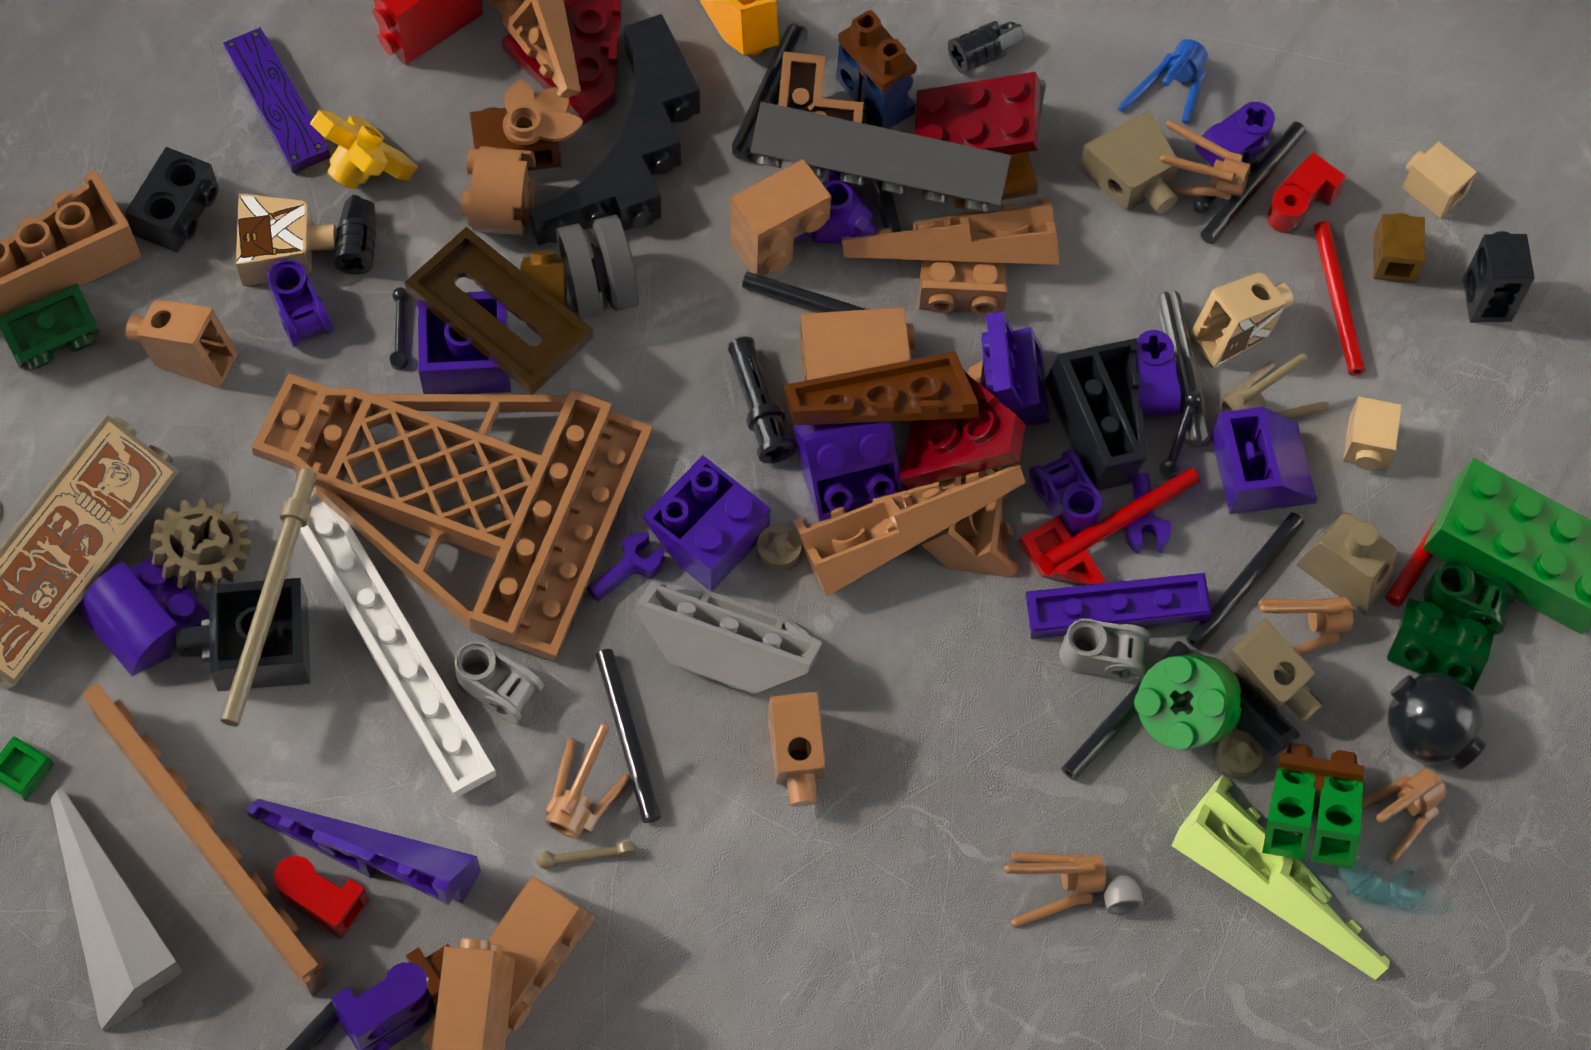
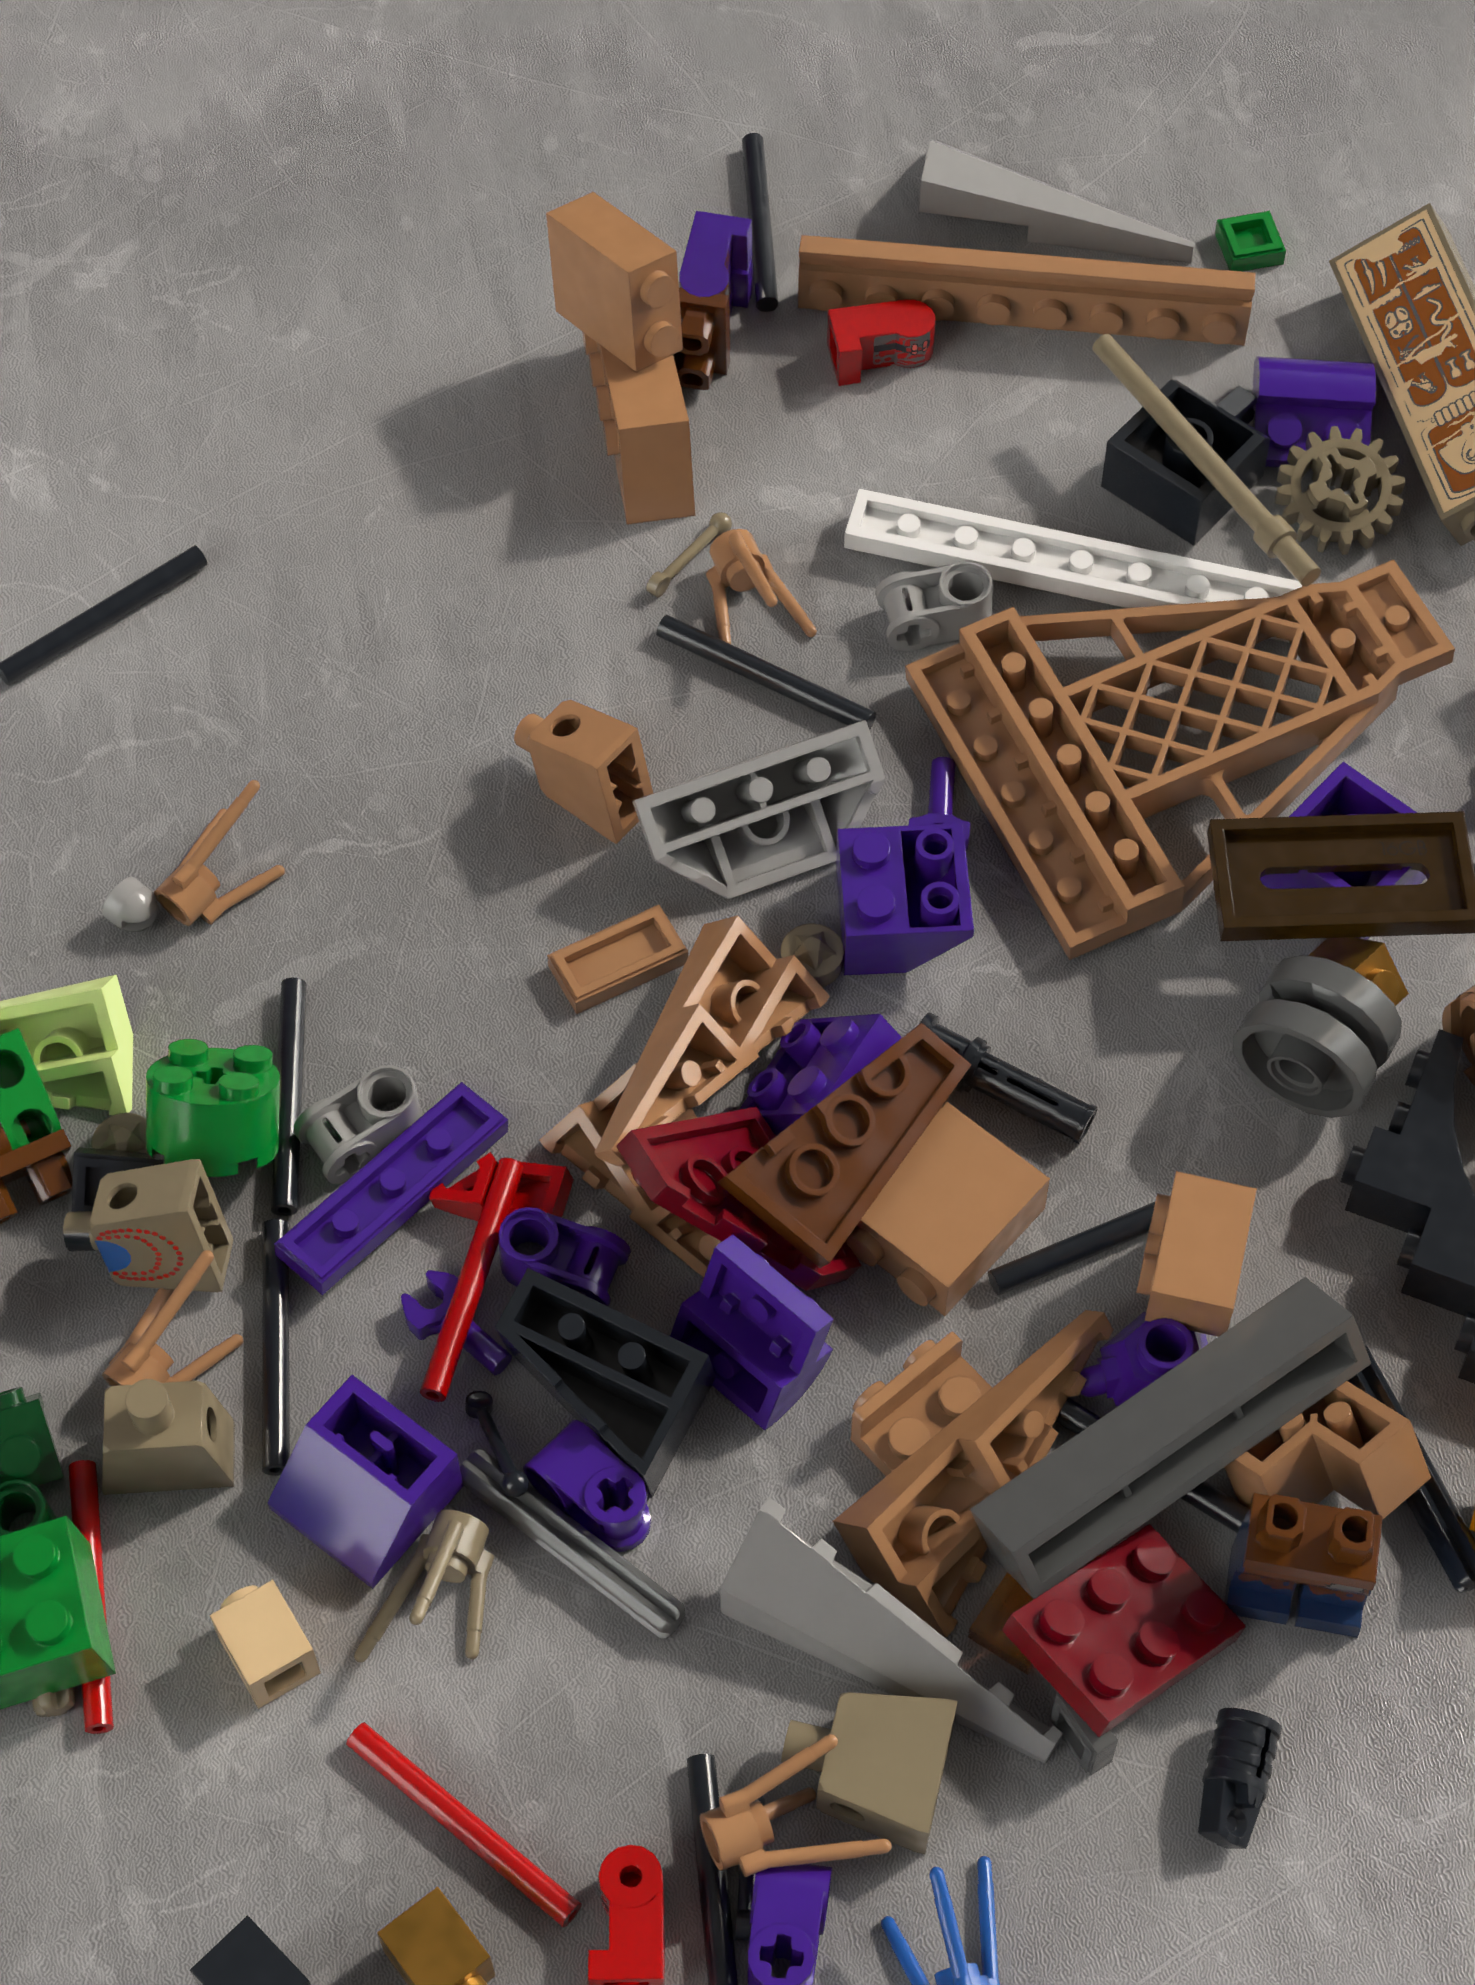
camera: 140 degrees right, 5 degrees down
(424, 866) = (829, 406): dark purple wedge -> none
(880, 636) = (617, 959): none -> medium nougat tile
(1084, 208) = (840, 1618): none -> light grey wedge
(1239, 317) = (557, 1619): tan torso -> none

